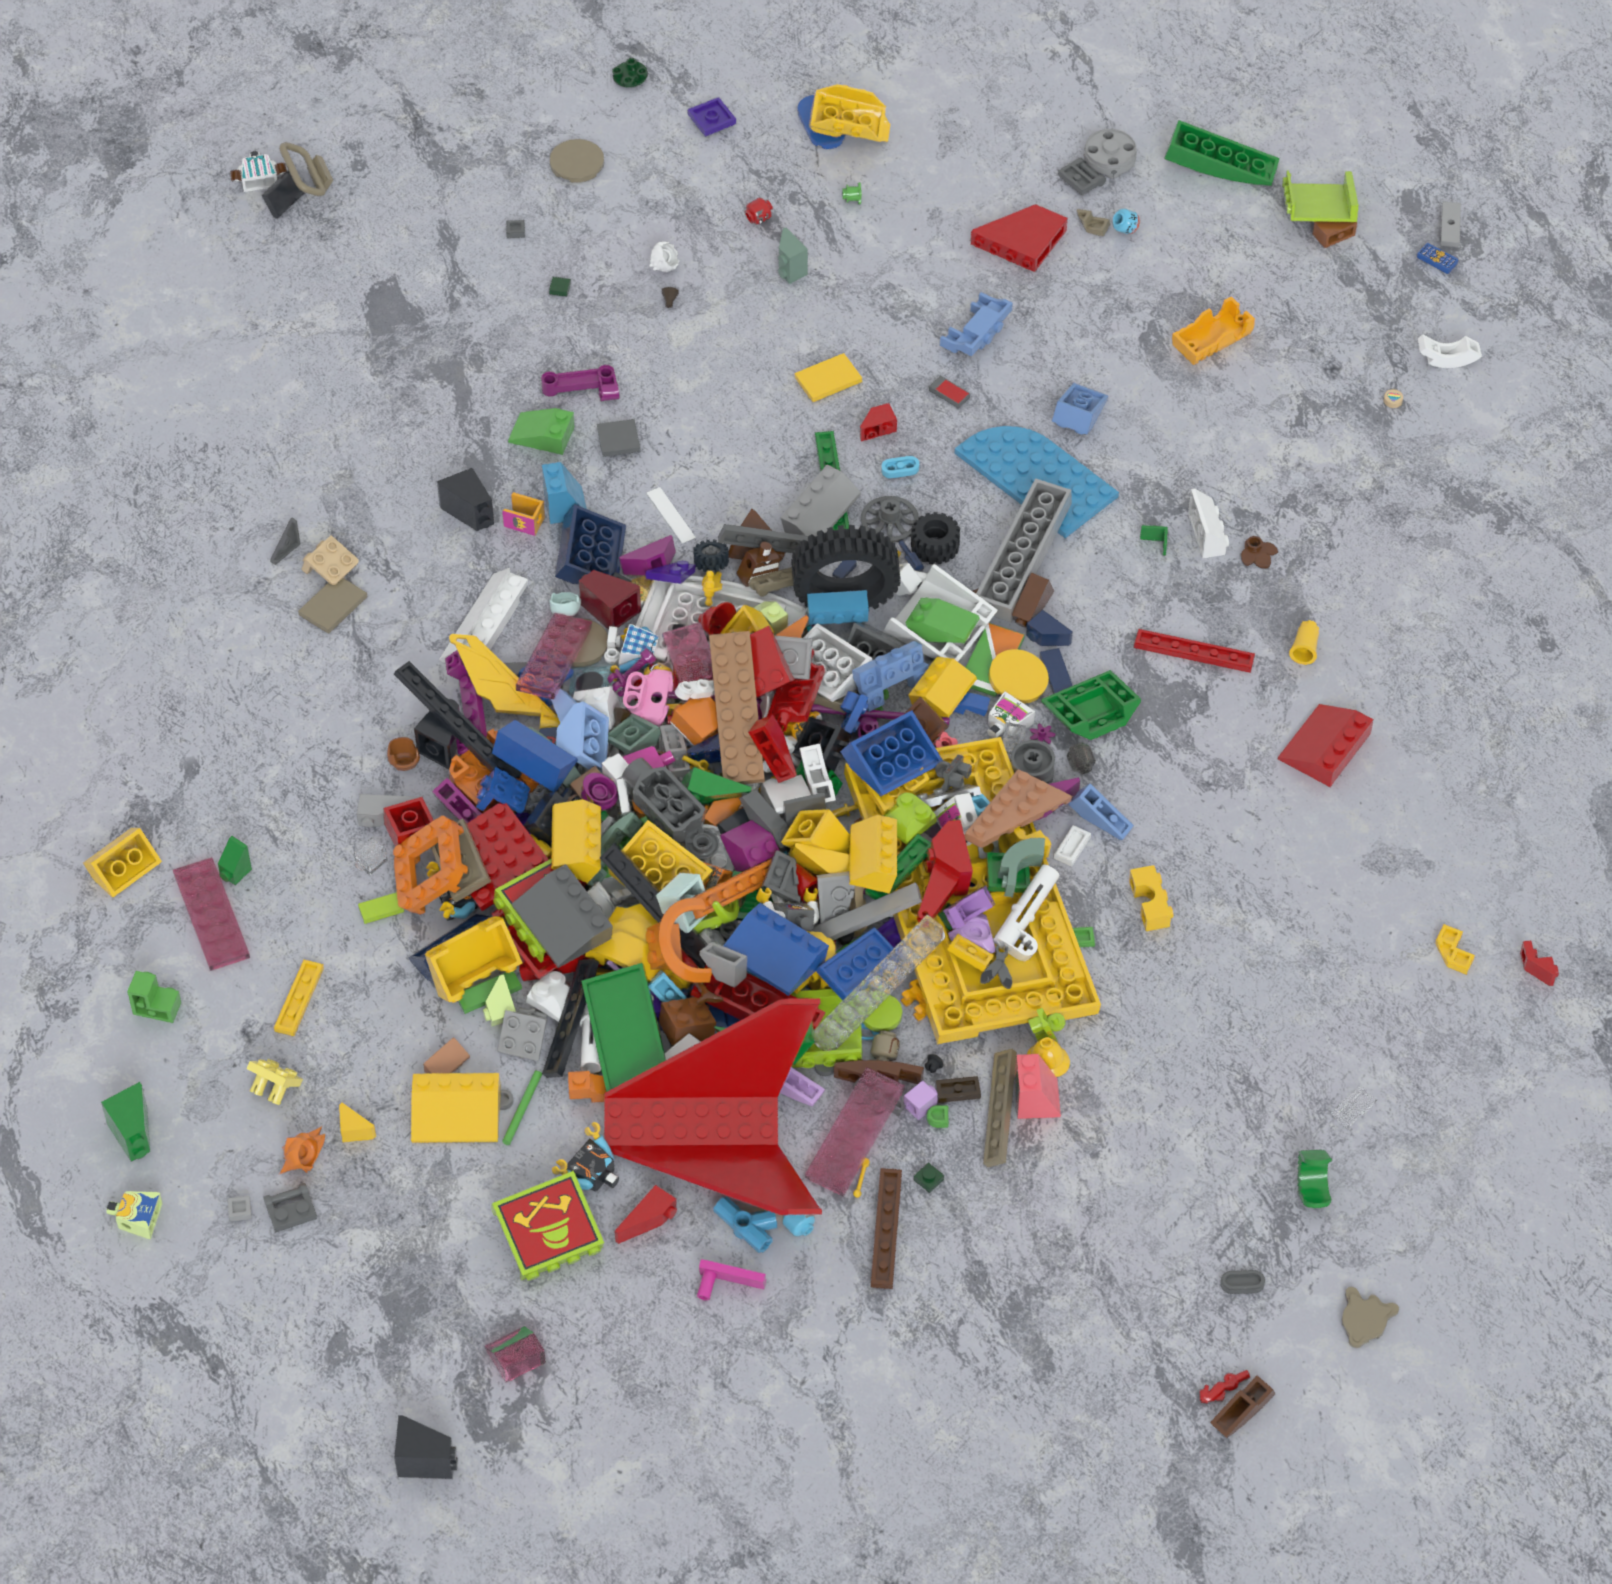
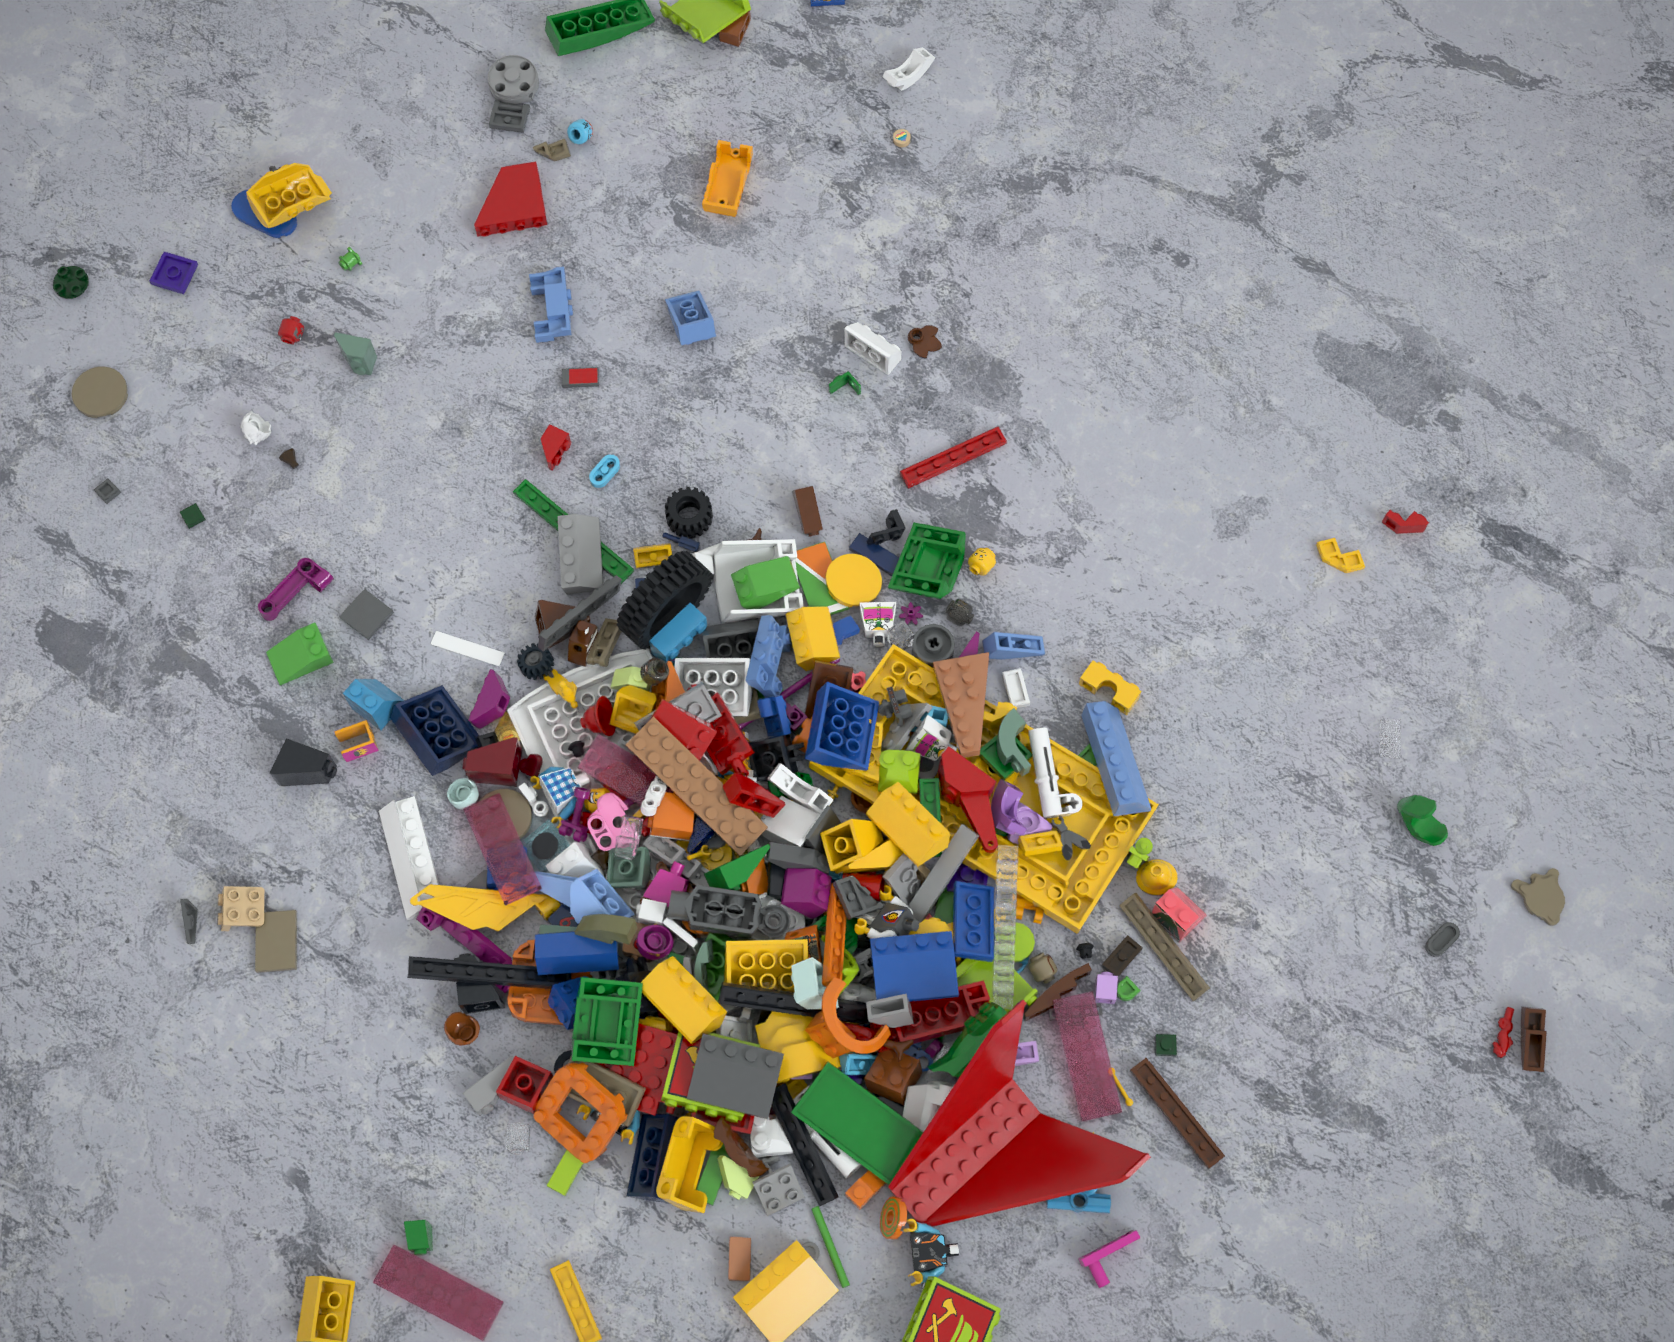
camera: 40 degrees left, 15 degrees up
(455, 801) = (544, 1036): magenta slope -> none
(507, 811) = (606, 1021): none -> green slope
(517, 976) = (738, 1149): none -> reddish brown piece
(571, 750) = (607, 928): none -> olive slope
(587, 1119) = (893, 1218): none -> orange tile
(638, 619) = (531, 765): none -> dark red tile
(647, 1215) = (1006, 1247): red slope -> none
(651, 714) = (629, 838): none -> clear slope
(673, 573) = (521, 700): dark purple wing -> none
(787, 612) = (654, 671): none -> clear smoke head
(828, 377) = (478, 435): yellow tile -> none
(890, 514) = (635, 518): dark grey wheel -> none
(1017, 455) = (710, 398): dark azure plate -> none
(1025, 546) = (765, 471): light grey brick -> none
(1048, 631) = (839, 525): dark blue slope -> none
(1084, 665) = (894, 532): none -> black bracket
(1099, 945) = (1115, 759): none -> medium blue slope
(1137, 735) = (981, 561): none -> yellow head
(1305, 644) = (1026, 389): yellow plant -> none
(1327, 742) = (1111, 459): red slope -> none

